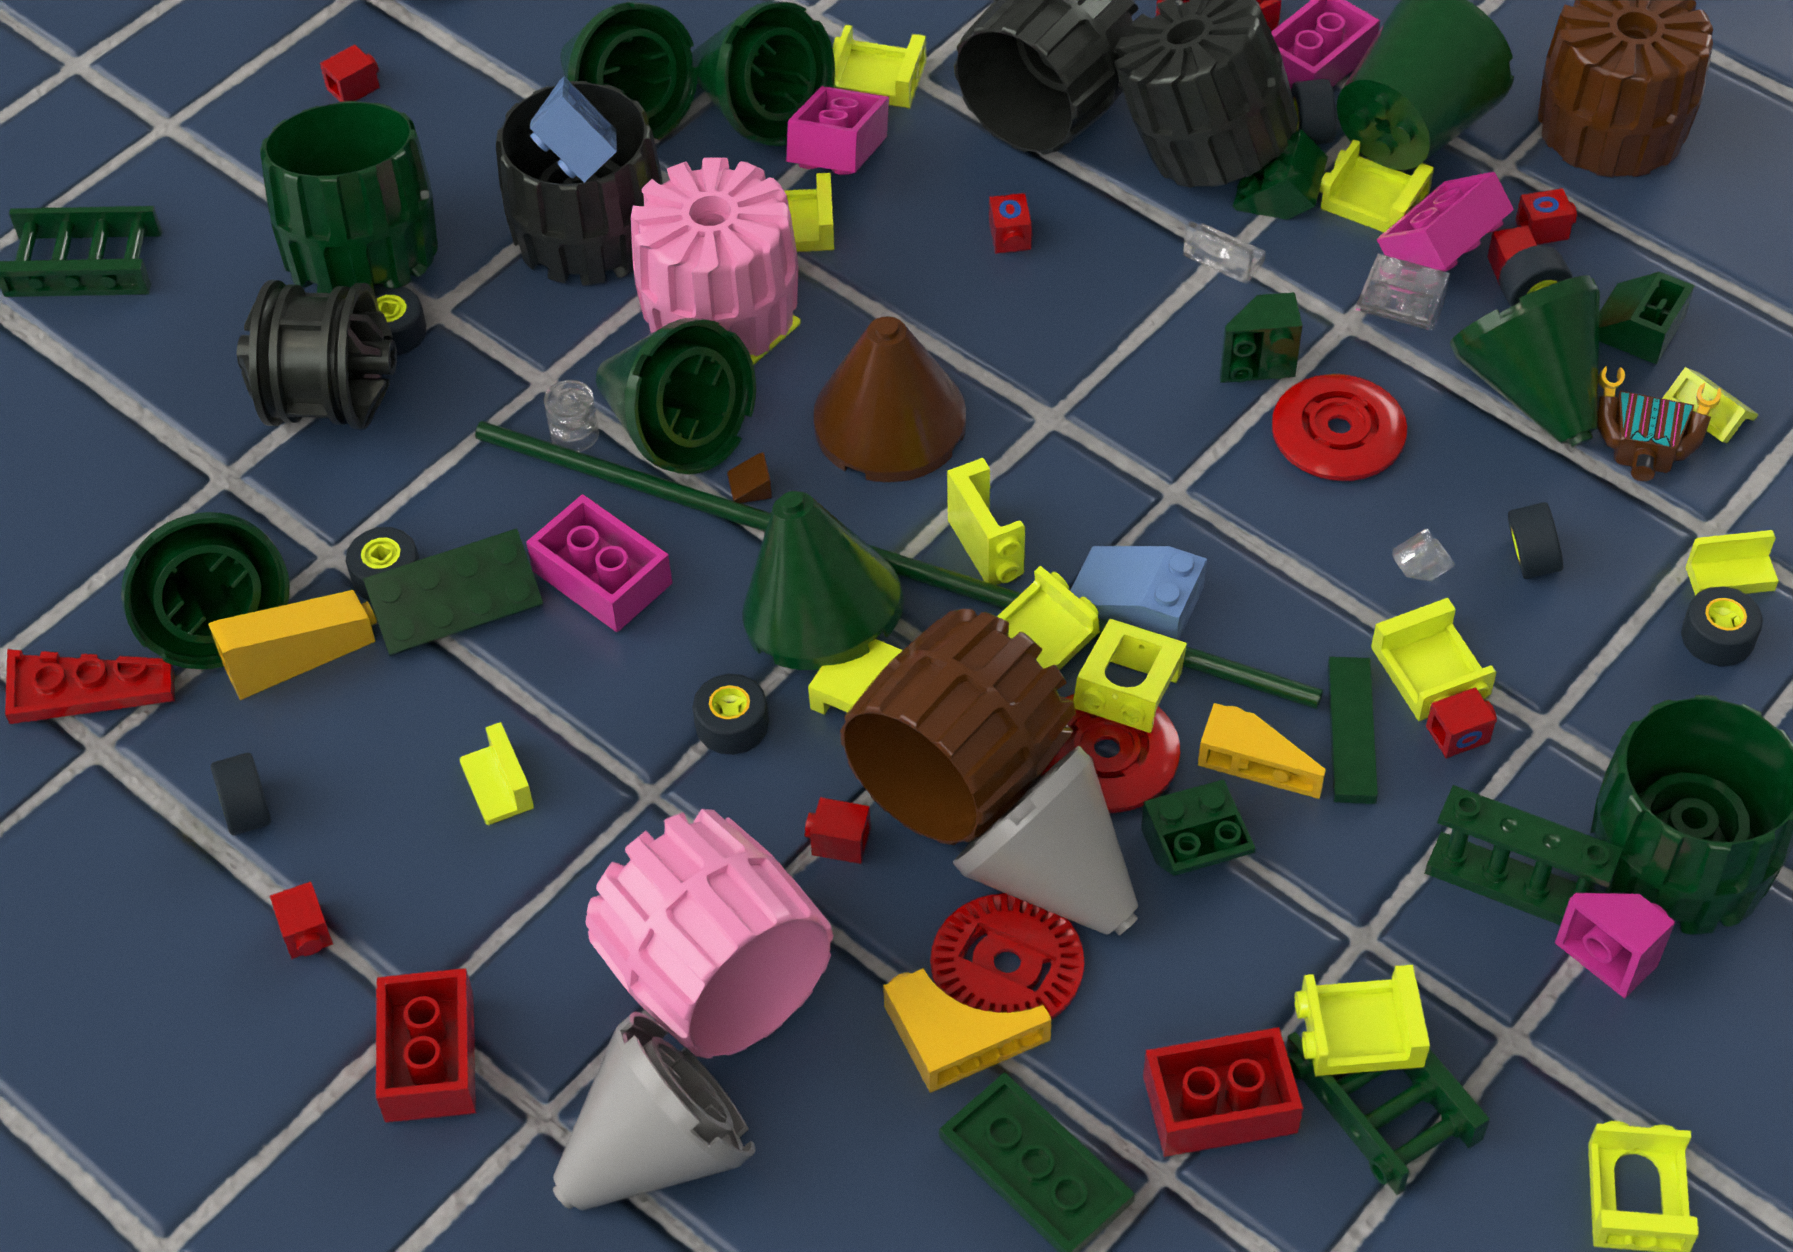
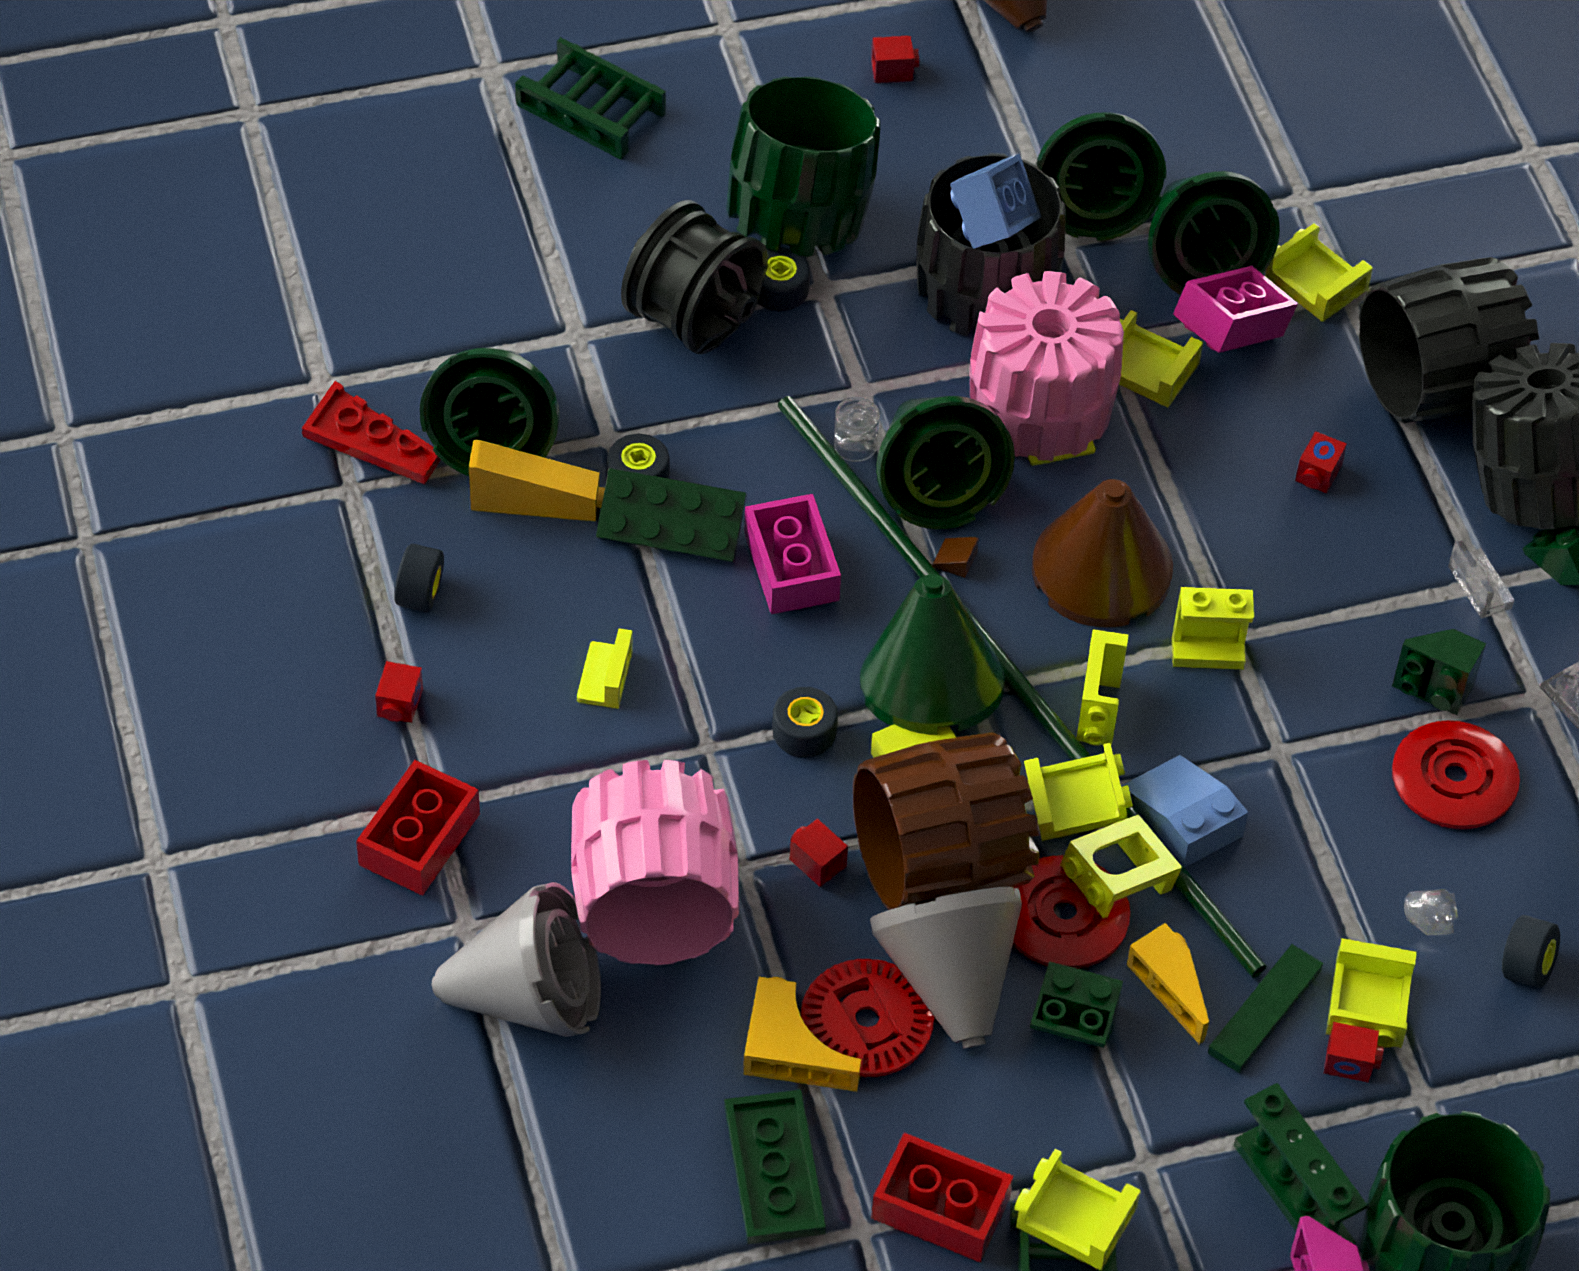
camera: 30 degrees right, 0 degrees up
(1038, 413) = (1211, 627): none -> neon yellow panel

